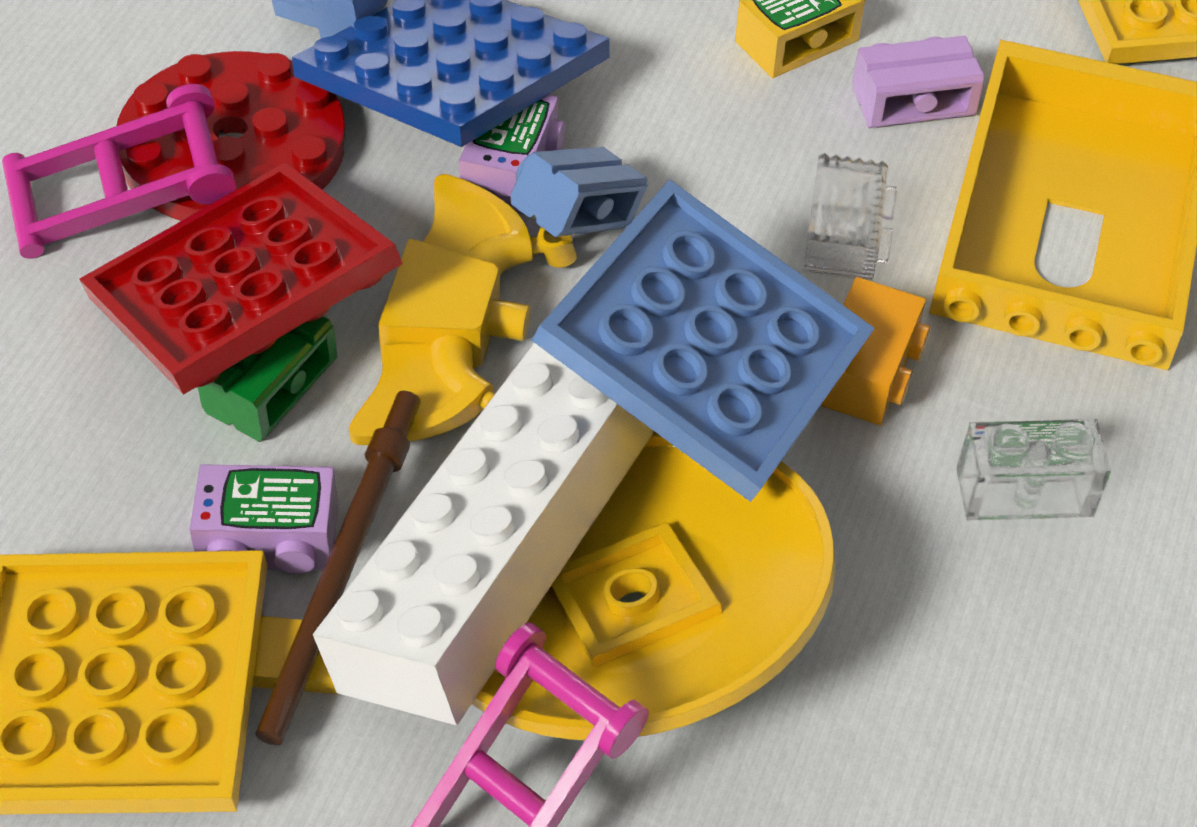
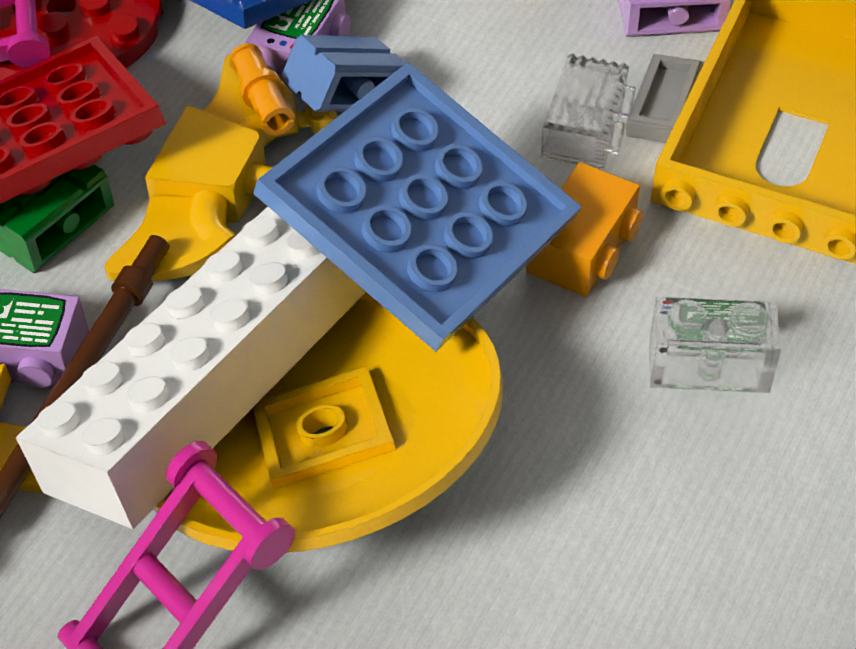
camera: 10 degrees right, 0 degrees up
(490, 215) = (262, 89): none -> light orange pin
(926, 196) = (662, 97): none -> light grey tile

